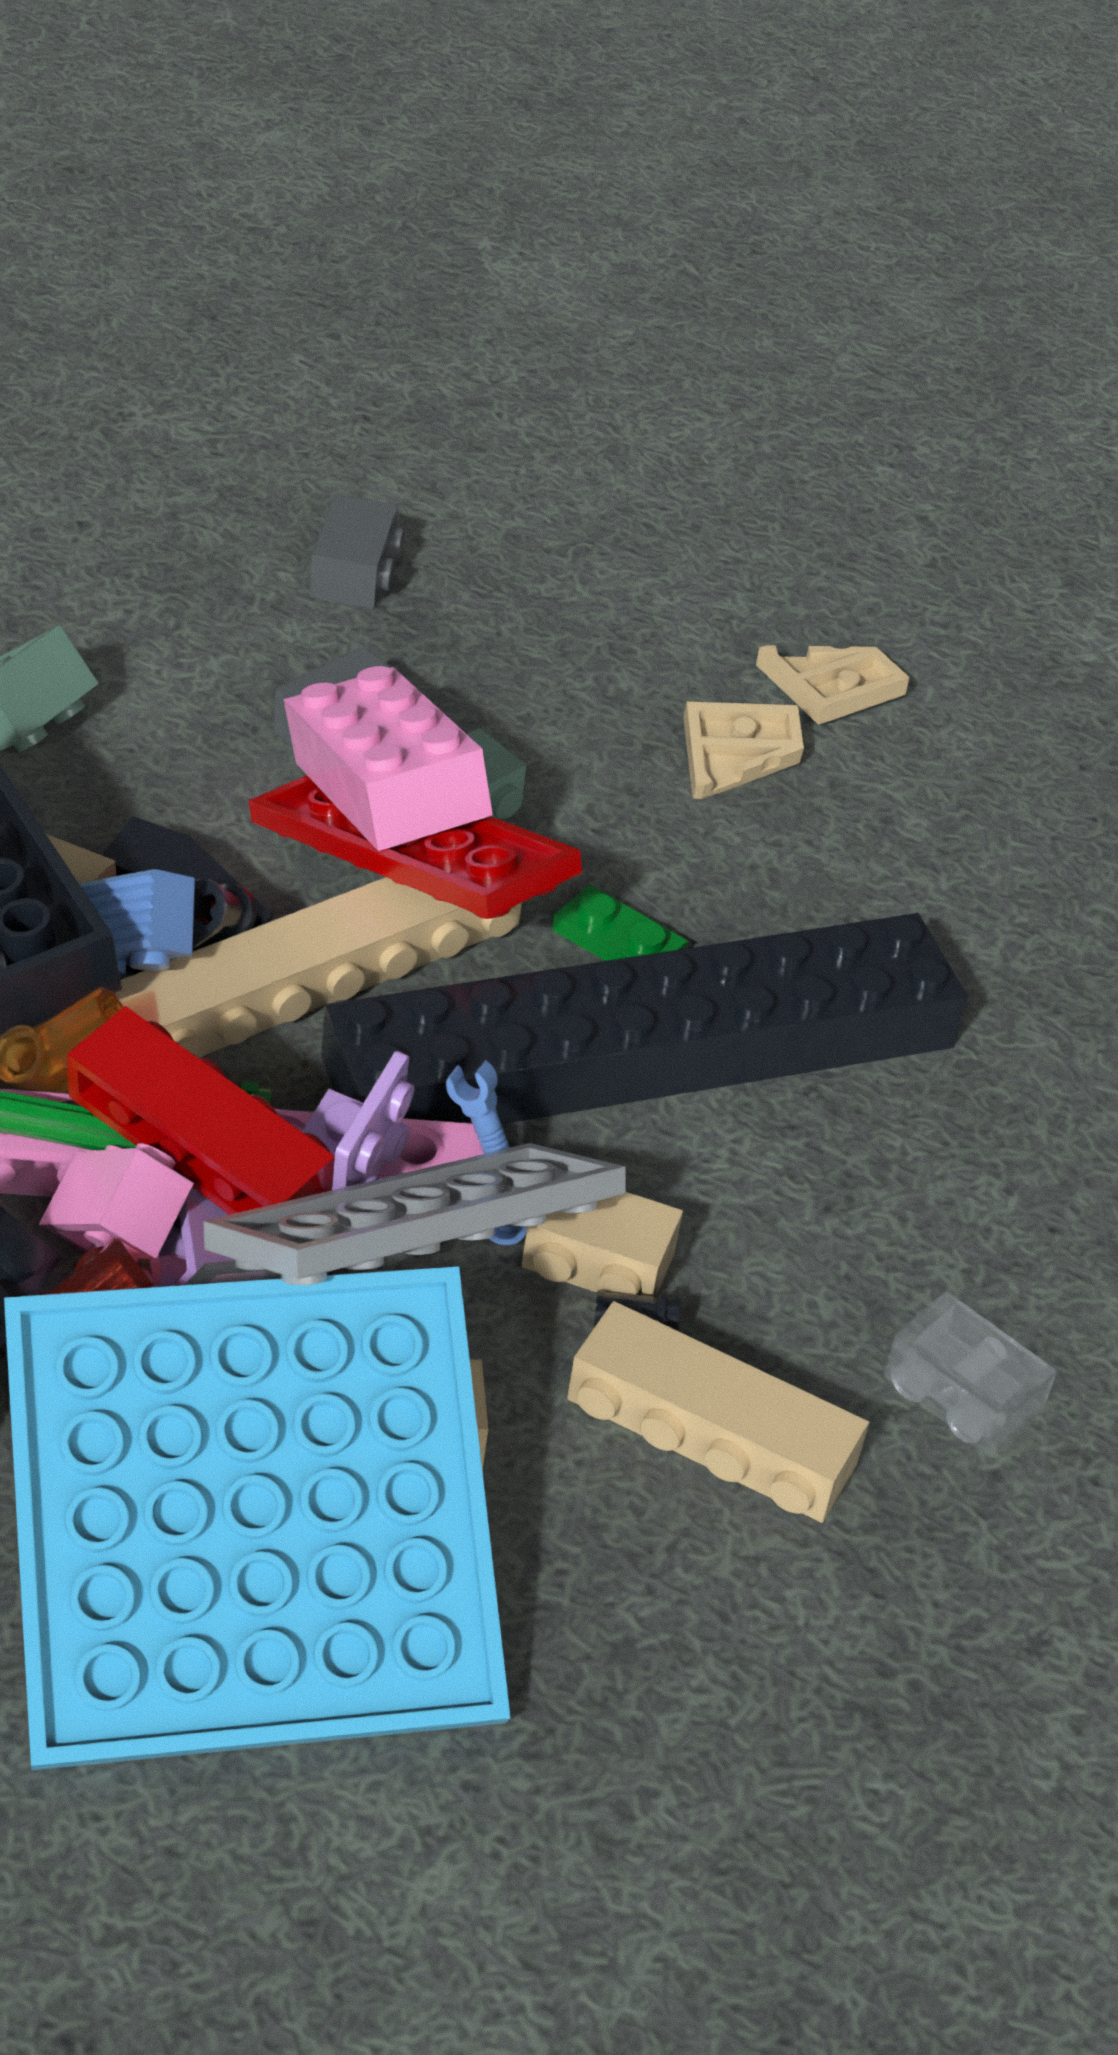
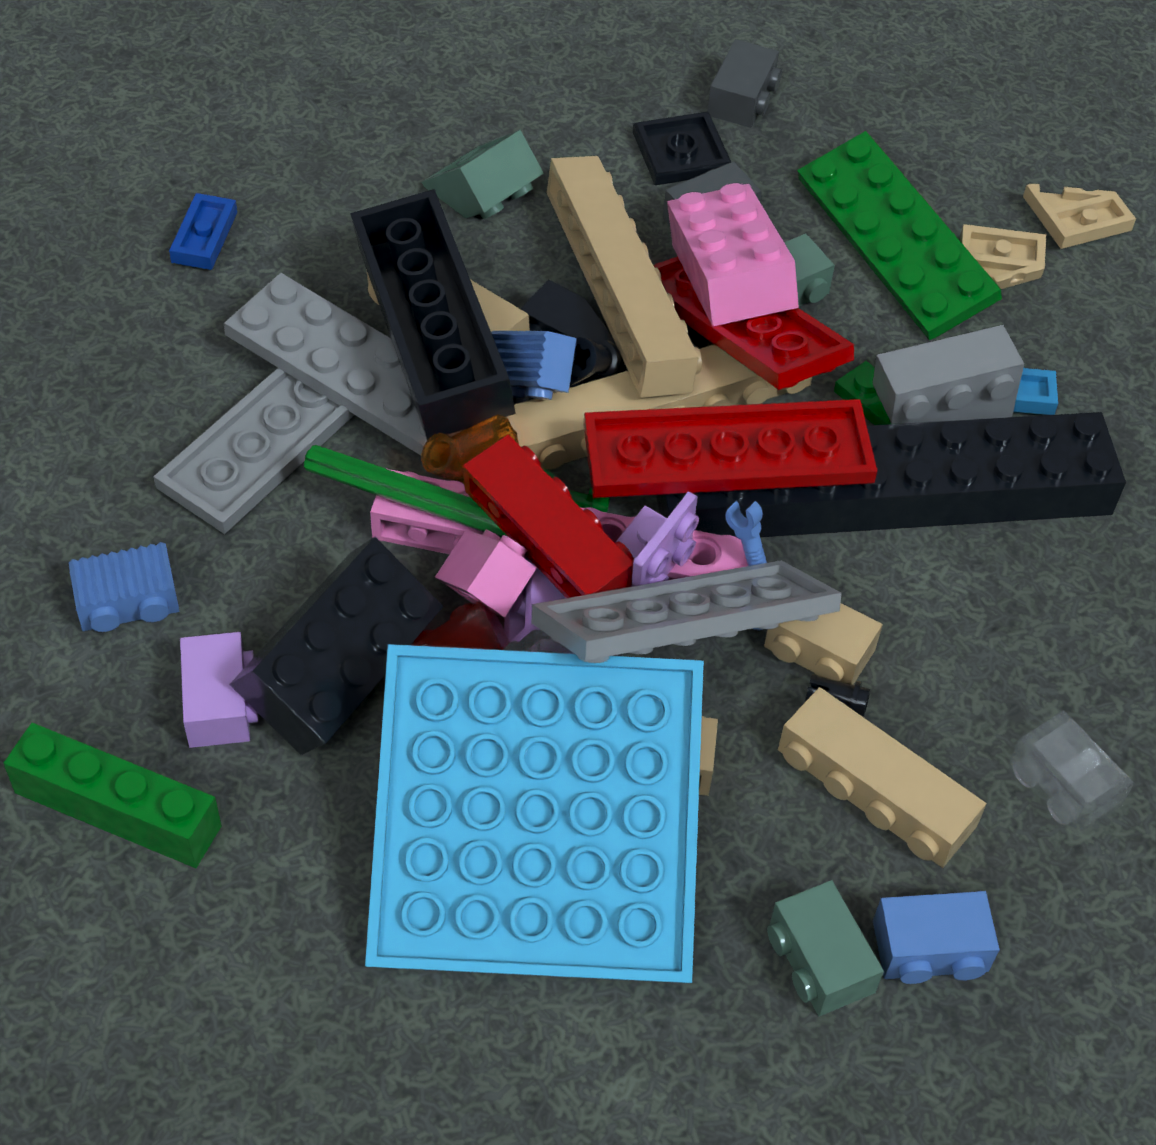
camera: 15 degrees right, 10 degrees up
(238, 804) = (623, 278): none -> tan brick
(280, 638) = (680, 147): none -> black tile
(428, 1002) = (728, 448): none -> red plate
(603, 724) = (899, 235): none -> green plate
(686, 1645) = (824, 948): none -> sand green brick
(711, 888) = (951, 378): none -> light grey wedge
(818, 900) = (1037, 392): none -> dark azure plate
(833, 1607) = (935, 936): none -> medium blue brick

